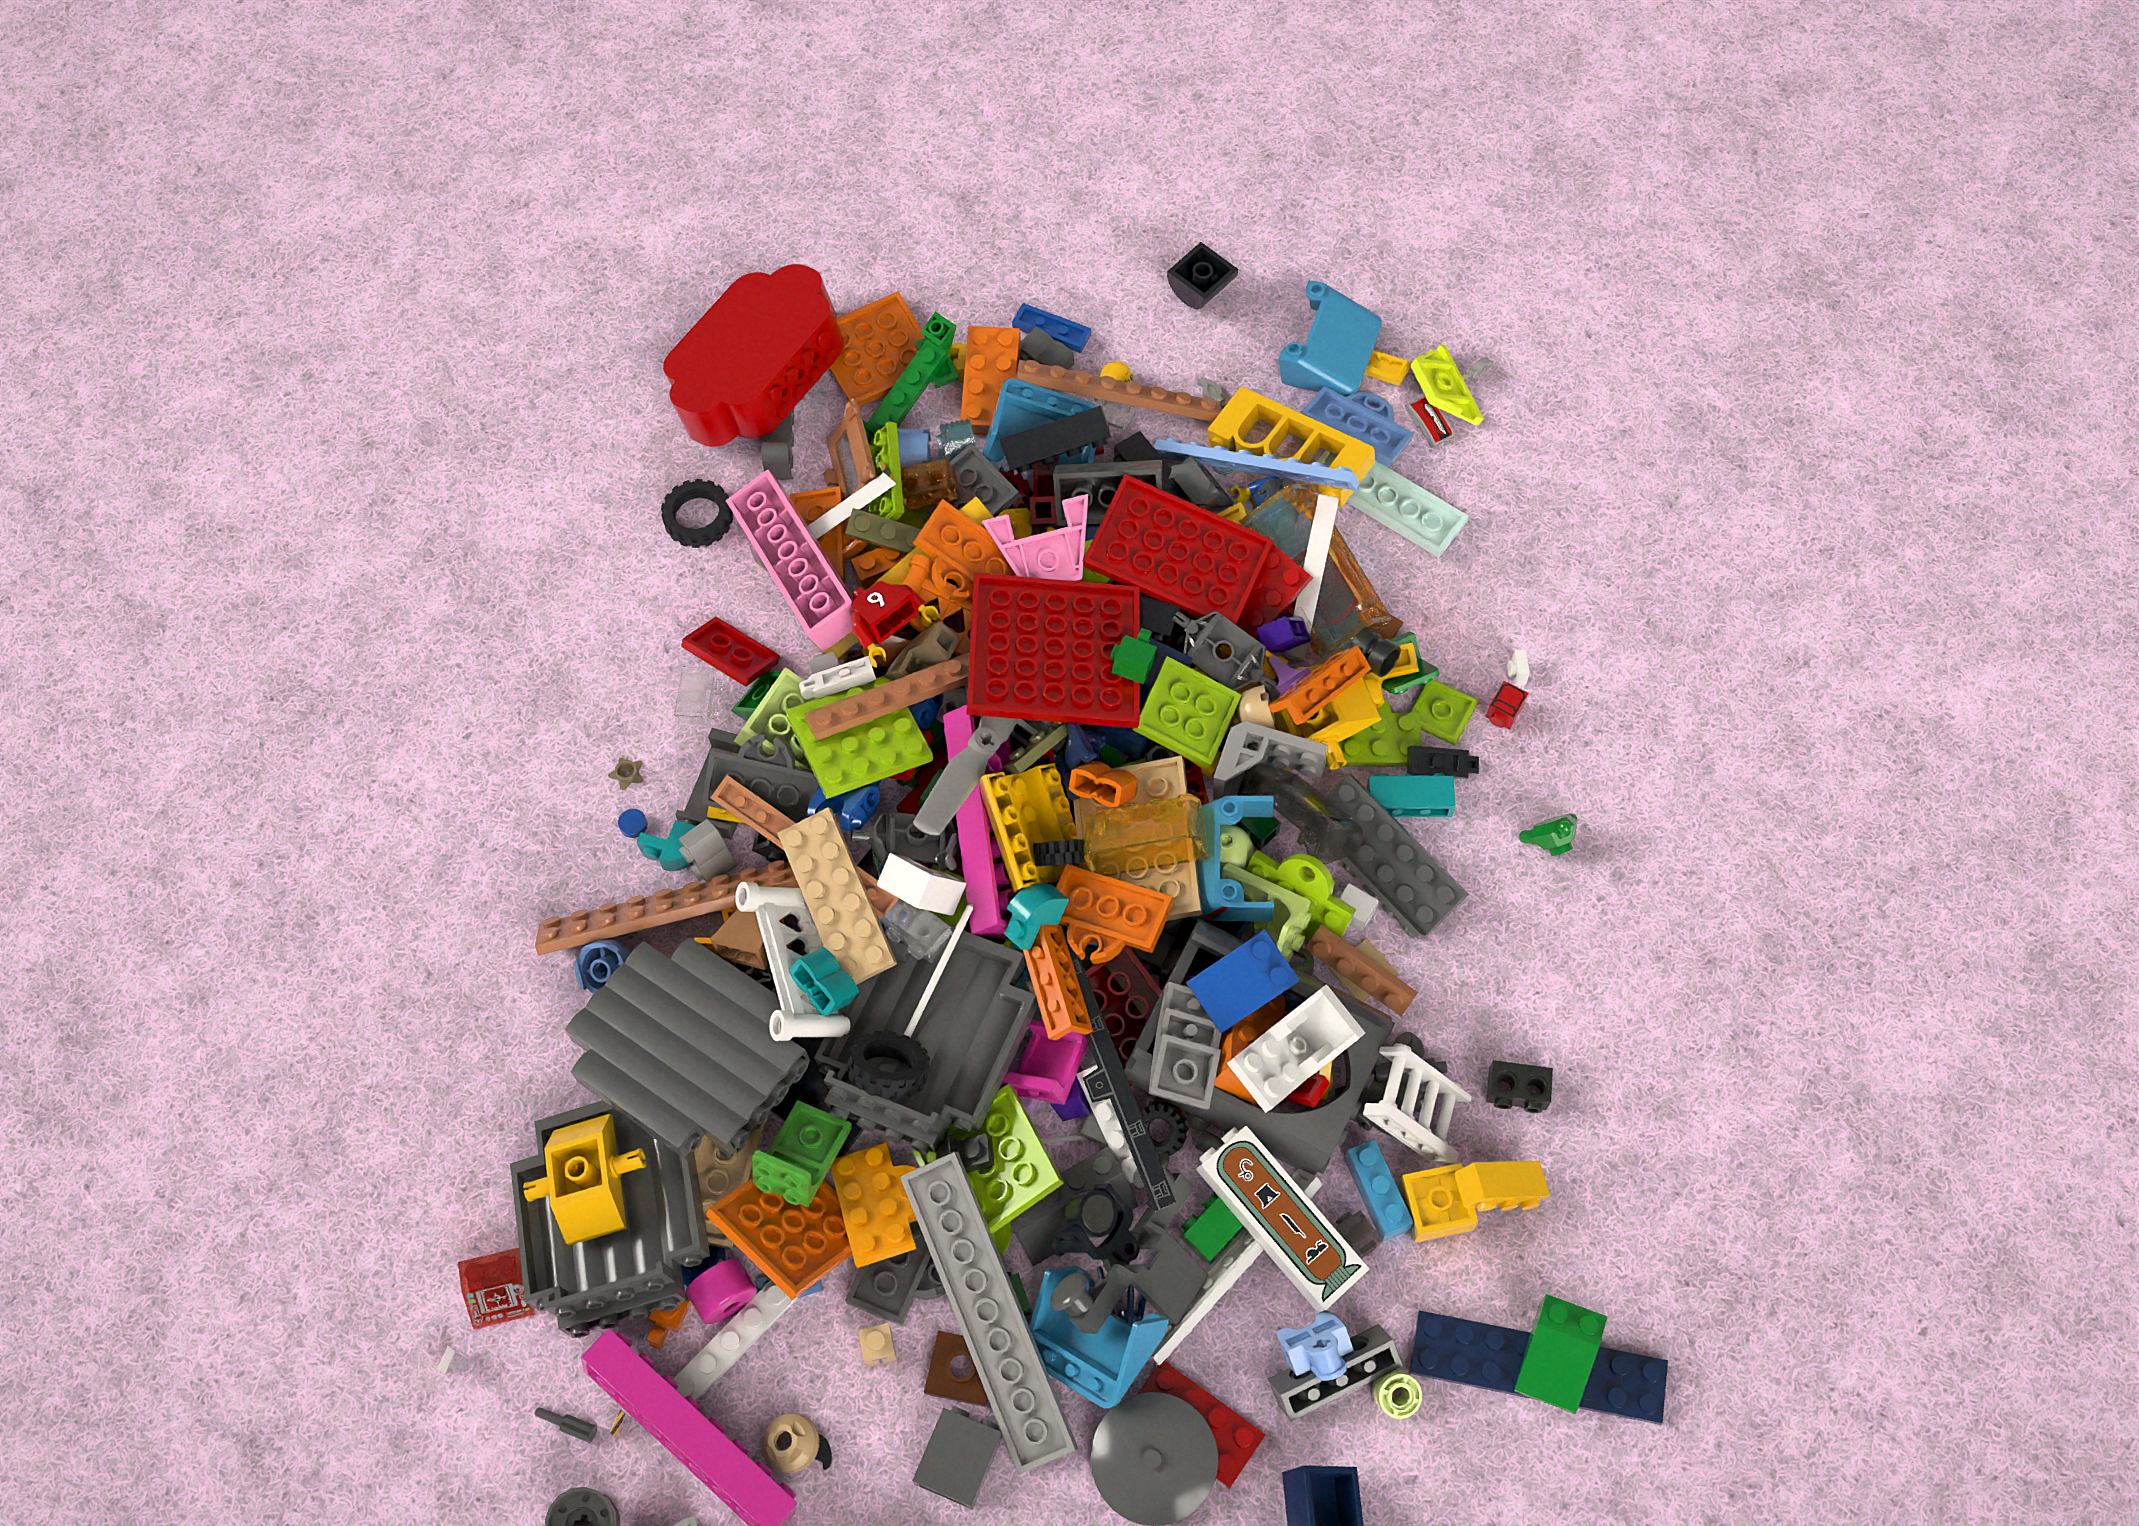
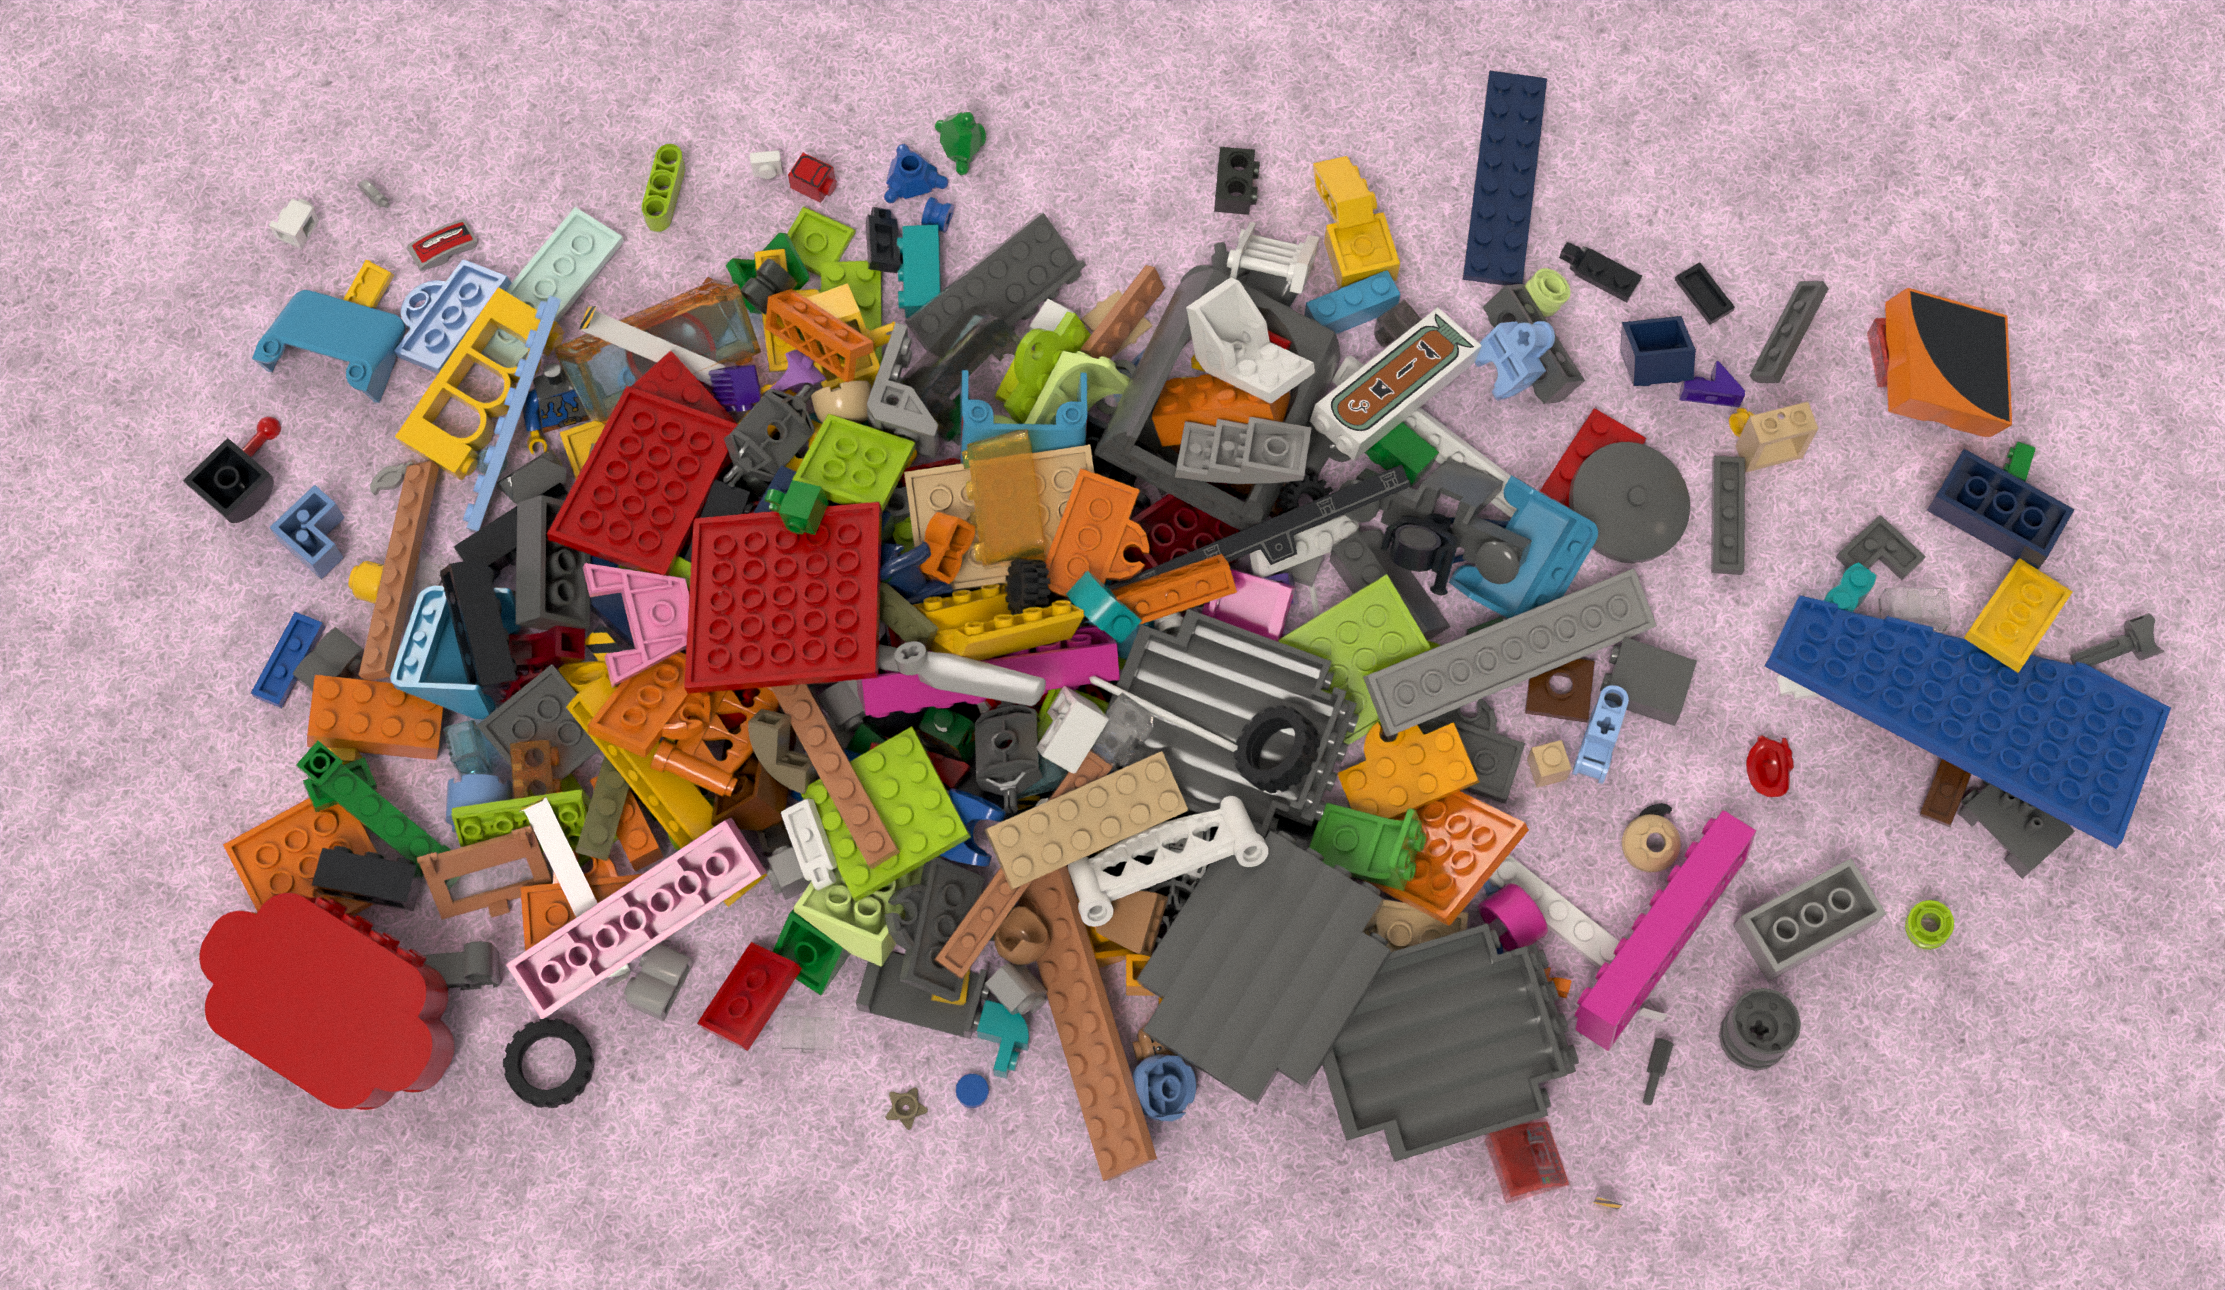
camera: 95 degrees left, 5 degrees up
(585, 1179) = (1378, 1073): yellow slope -> none
(745, 850) = (1021, 937): none -> medium nougat hair
(752, 588) = (658, 981): none -> light grey brick
(824, 981) = (1191, 817): teal brick -> none
(856, 377) = (368, 878): none -> black brick
(879, 1388) = (1601, 735): none -> light blue piece
(884, 611) = (737, 787): red torso -> none
(945, 857) = (1032, 711): dark grey hand -> none
(974, 1152) = (1351, 670): pearl dark grey slope -> none
(1158, 329) = (305, 529): none -> medium blue brick
(1242, 981) = (1179, 388): blue slope -> none
(1257, 307) = (267, 429): none -> red bar
(1427, 1462) = (1601, 271): none -> black hinge
(1445, 385) = (396, 226): neon yellow wing -> none
(1446, 314) = (295, 223): none -> white brick
(1472, 811) = (937, 214): none -> blue wheel
(1503, 580) = (660, 176): none -> lime beam
(1514, 791) = (911, 176): none -> blue rock
(1560, 1353) = (1497, 151): green slope -> none

